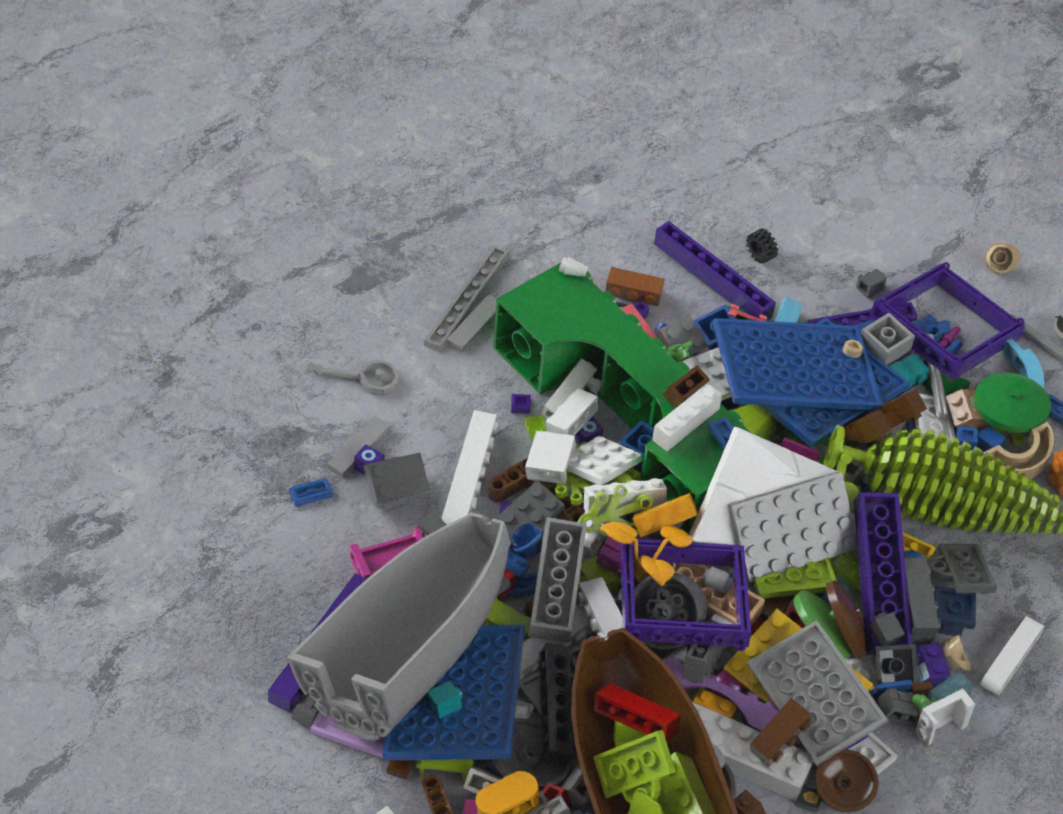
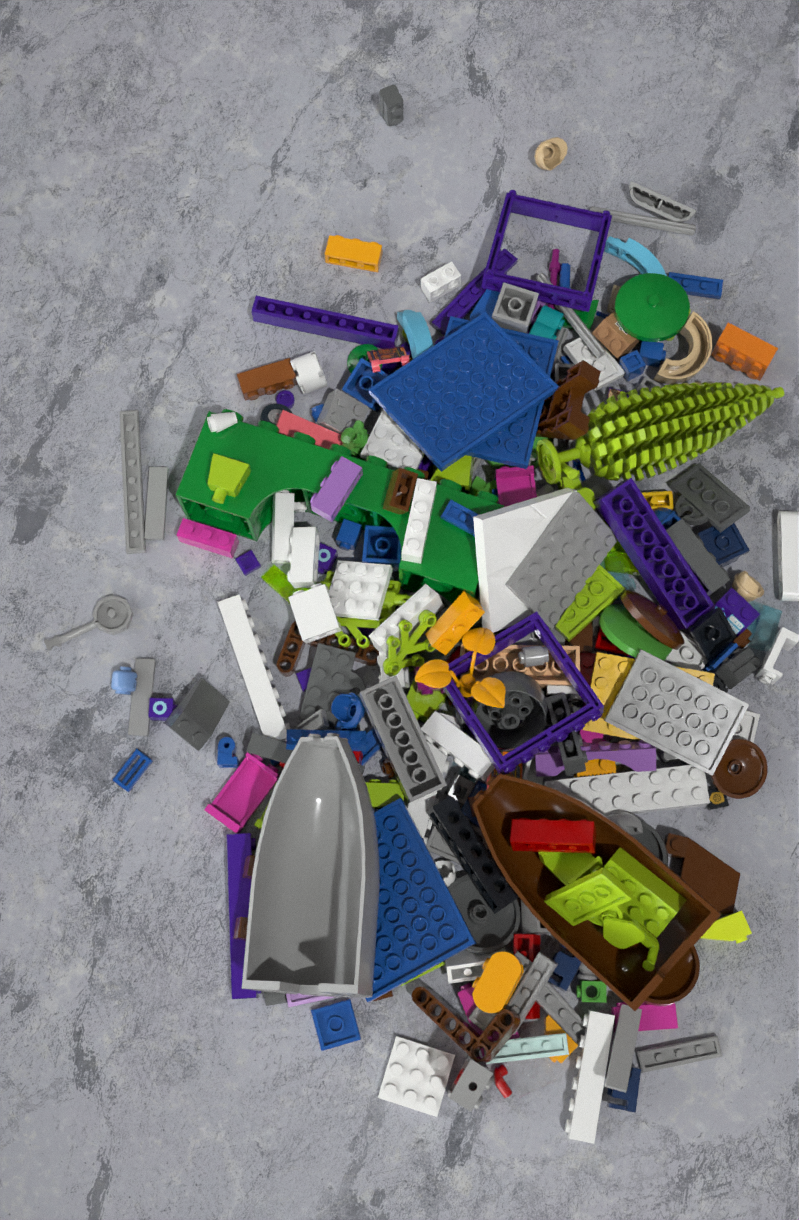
camera: 25 degrees left, 25 degrees up
(340, 769) = (336, 1024): none -> blue tile
(353, 424) = (124, 681): none -> medium blue head
(399, 522) = (226, 752): none -> blue leg
(445, 699) = (388, 919): teal brick -> none
(500, 366) = (207, 538): none -> dark pink brick
(548, 305) = (226, 477): none -> lime torso
(620, 426) = (349, 535): none -> blue brick
(633, 360) = (336, 488): none -> medium lavender brick
(674, 297) = (309, 372): none -> white brick
(762, 245) = (348, 268): black tyre -> none
(781, 732) = (672, 770): reddish brown brick -> none
(788, 246) = (353, 253): none -> light orange brick
(837, 297) = (440, 281): none -> white brick
(853, 348) = (498, 341): tan tile -> none
(871, 283) = (459, 247): dark grey brick -> none
(884, 155) = (391, 105): none -> dark grey brick
(886, 628) = (691, 609): dark grey brick -> none
(921, 701) = (758, 656): bright green arm -> none
(931, 326) = (533, 261): blue plate -> none

